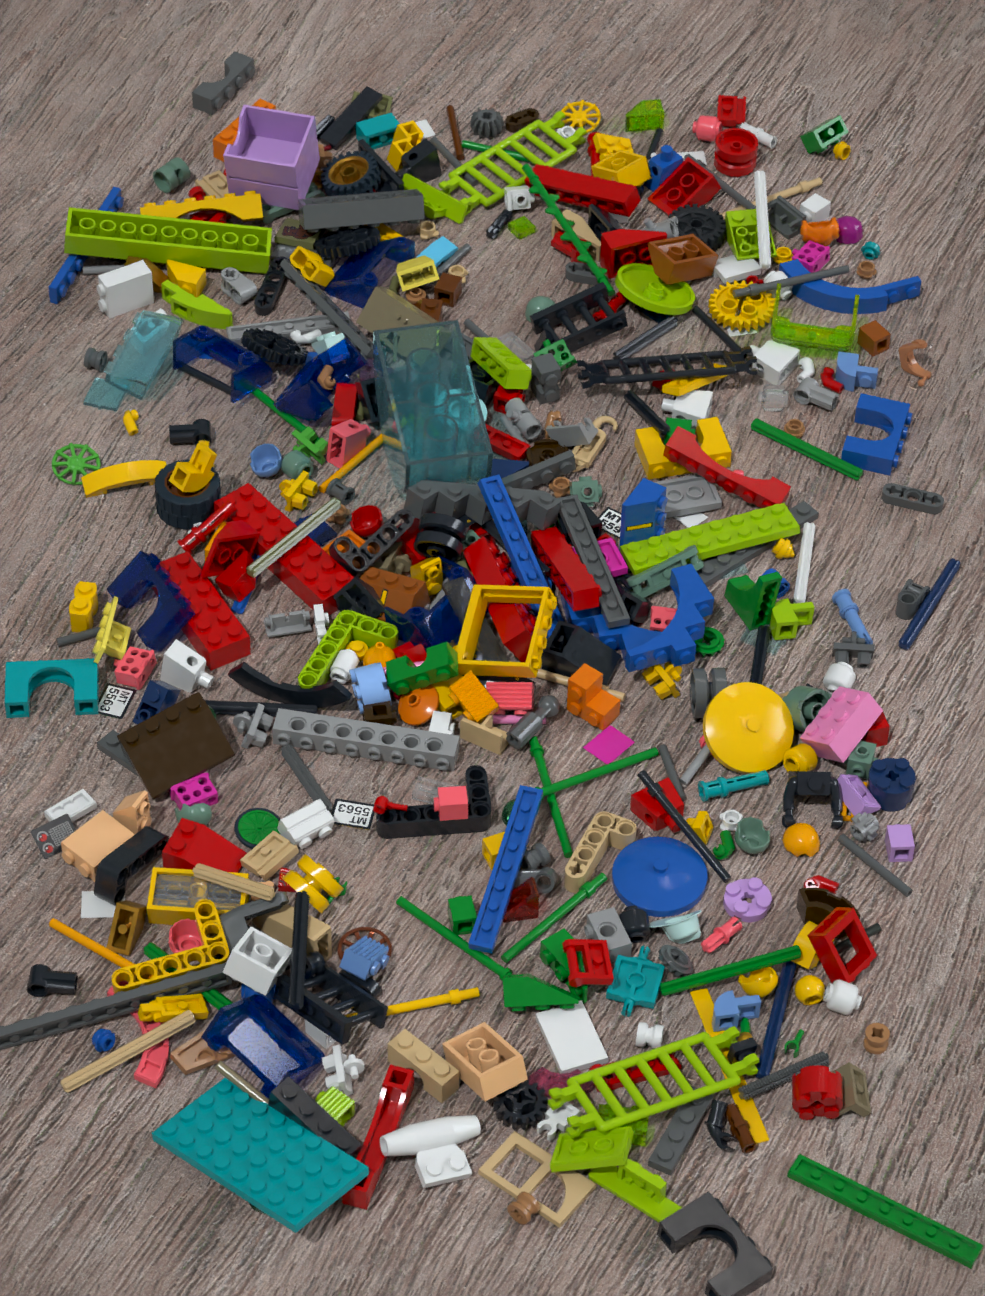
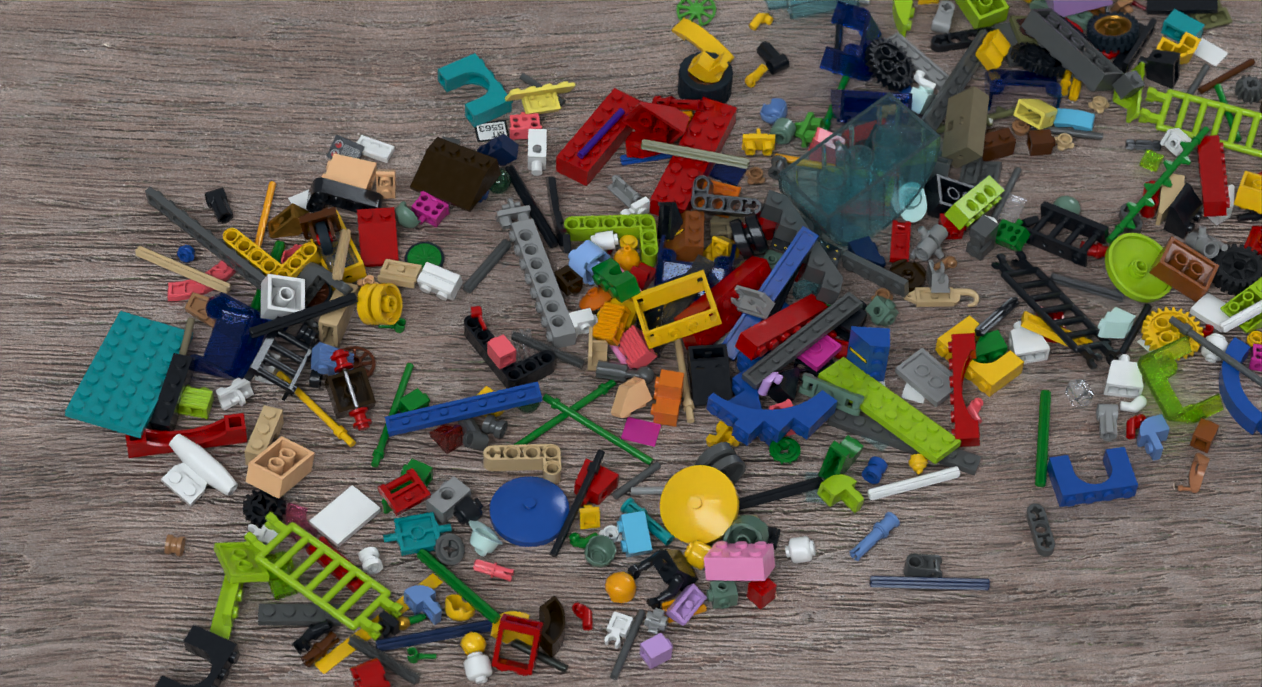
camera: 60 degrees right, 5 degrees up
(83, 606) = (557, 72): yellow brick -> none
(168, 1007) = (225, 271): yellow hinge -> none
(172, 608) = (594, 93): clear blue arch -> none
(188, 885) = (321, 228): none -> reddish brown plate
(210, 600) = (596, 138): none -> dark purple bar
(353, 814) = (474, 299): sticker -> none
(366, 520) = (757, 191): red hair -> none
(418, 958) = (350, 391): none -> dark brown brick
(433, 192) = (1128, 84): none -> dark grey brick
(459, 771) = (560, 355): none -> dark grey axle
(529, 990) = (365, 473): green slope -> none
(533, 568) = (753, 302): none -> light grey hinge
(570, 729) = (630, 396): none -> light nougat slope
(576, 1185) = (212, 572): tan window -> none
(585, 891) = (486, 471): green bar -> none
(626, 247) = (1164, 223): red slope -> none
(632, 600) = (767, 382): none -> lavender arm
(709, 335) = (1116, 324): none -> light aqua slope
(747, 888) = (539, 584): lavender plate -> none
(749, 796) = (634, 533): none -> medium azure brick
(795, 427) = (1059, 417): medium nougat plate -> none
(852, 861) = (618, 627): none -> white plate
(853, 648) = (830, 542): dark grey hips -> none
(891, 783) = (711, 622): dark blue brick -> none

